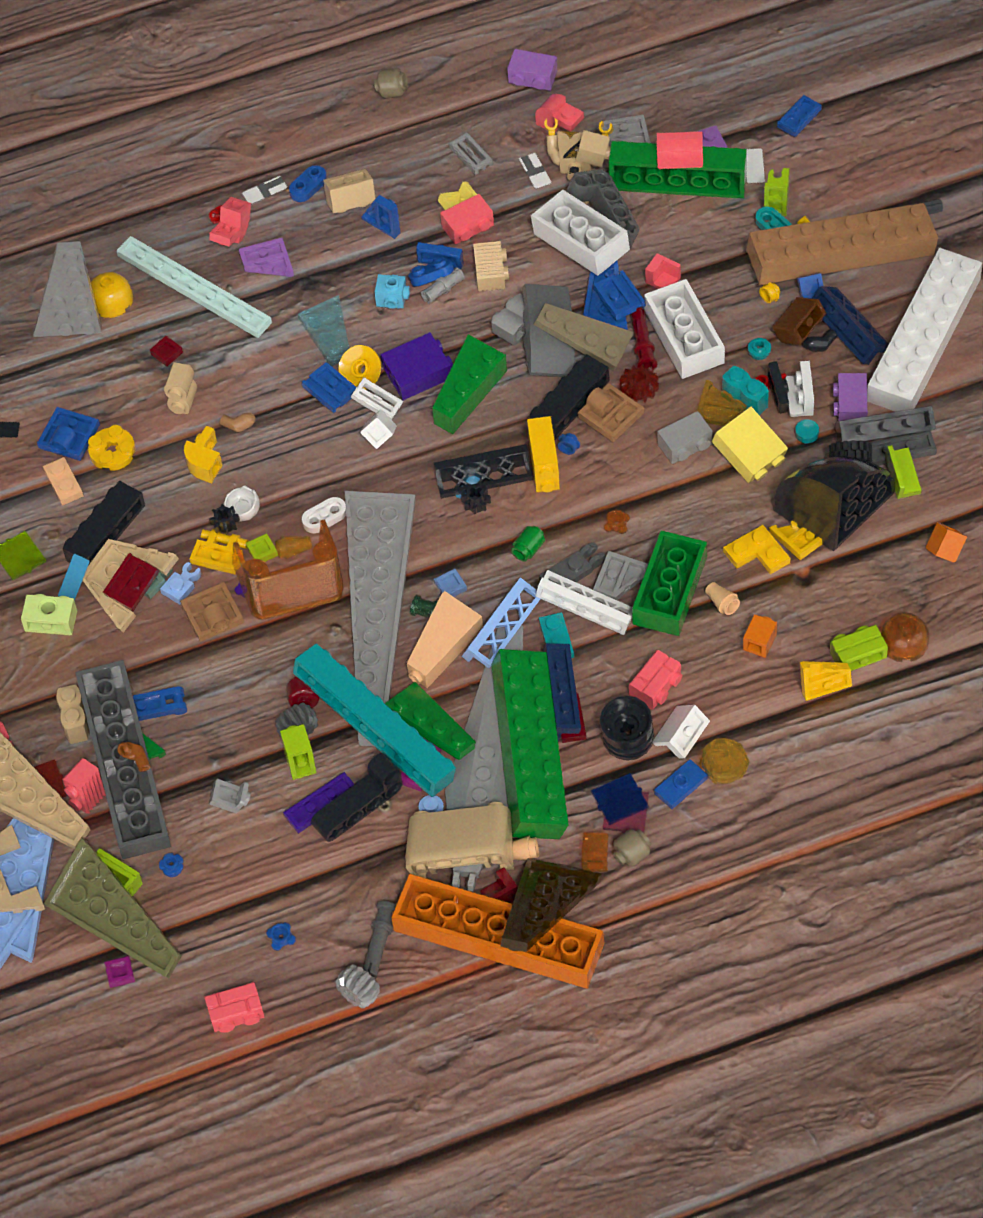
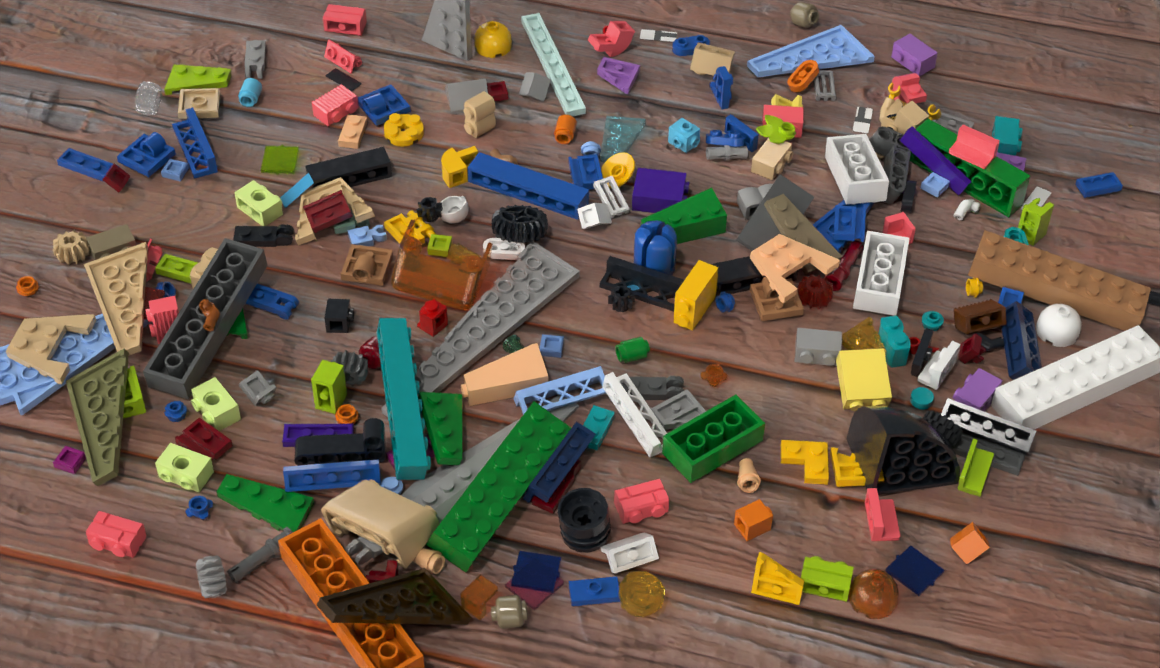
camera: 30 degrees right, 10 degrees down
(22, 464) = (335, 105): none -> coral brick
(37, 728) = (175, 268): none -> lime plate
(47, 755) = (167, 287): none -> blue plate
(82, 645) = (264, 235): none -> black hinge
(140, 372) = (460, 92): none -> light grey slope
(197, 825) = (215, 404): none -> yellowish green brick
(199, 323) = (535, 86): none -> light grey panel
(227, 875) = (204, 439): none -> dark red plate
(235, 678) = (338, 315): none -> black brick
(243, 899) = (184, 467): none -> yellowish green brick
(270, 352) = (565, 129): none -> orange brick
(289, 435) = (527, 185): none -> blue brick
(314, 360) = (590, 148): none -> light blue plate
(321, 481) = (519, 224): none -> black gear
(323, 626) = (430, 314): none -> red brick
(328, 762) = (346, 414): none -> orange plate
(346, 889) = (266, 502): none -> green wing
(374, 831) = (330, 475): none -> blue fence
(438, 118) = (829, 49): none -> light blue wing
(445, 157) = (803, 76): none -> orange plate
(462, 432) = (656, 246): none -> blue cylinder
(476, 234) = (776, 130): none -> lime plate
(591, 367) = (785, 256): none -> light nougat wing
(644, 180) = (935, 160): none -> dark purple tile
(646, 235) = (908, 196): none -> black beam
(657, 204) = (935, 184): none -> light blue plate
(681, 112) = (1008, 133): none -> teal brick
(700, 213) = (966, 206): none -> white arm
(816, 356) = (971, 350): none -> dark red tile
(858, 565) = (881, 517): none -> coral panel
(868, 286) = (1059, 325): none -> white cylinder
(918, 595) = (914, 570): none -> clear blue piece

